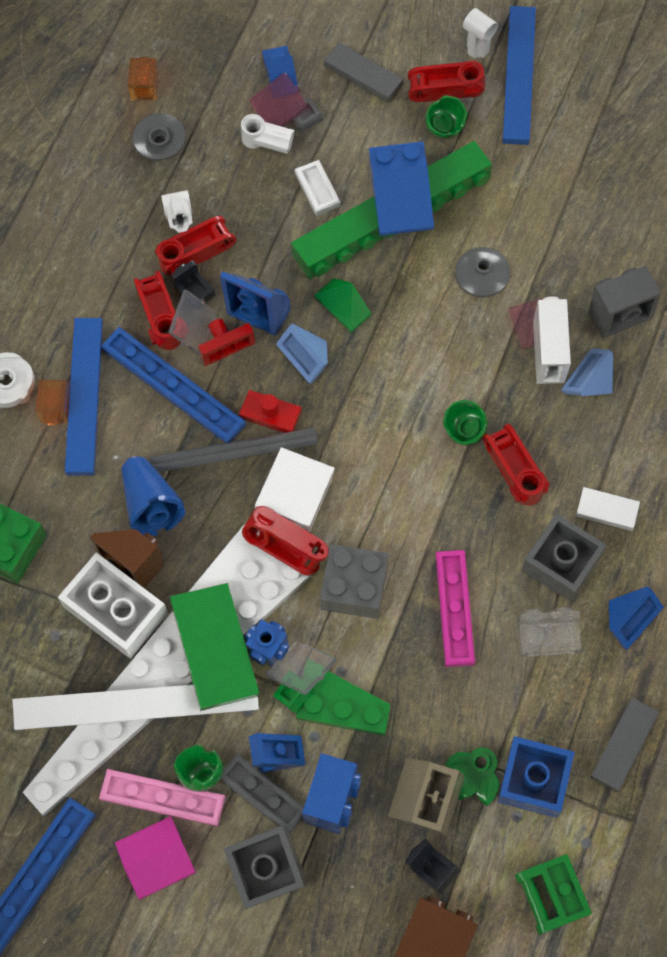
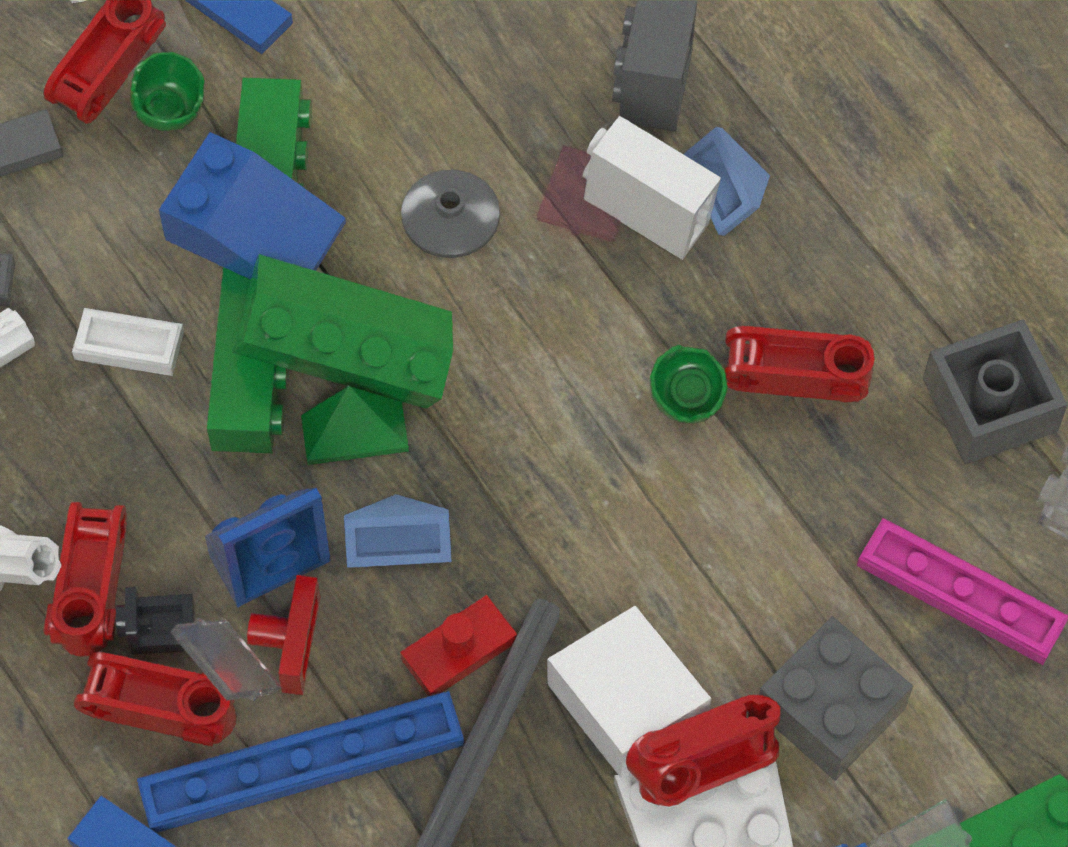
camera: 60 degrees left, 5 degrees down
(378, 263) = (345, 333): none -> green slope
(608, 509) = (947, 294): white tile -> none

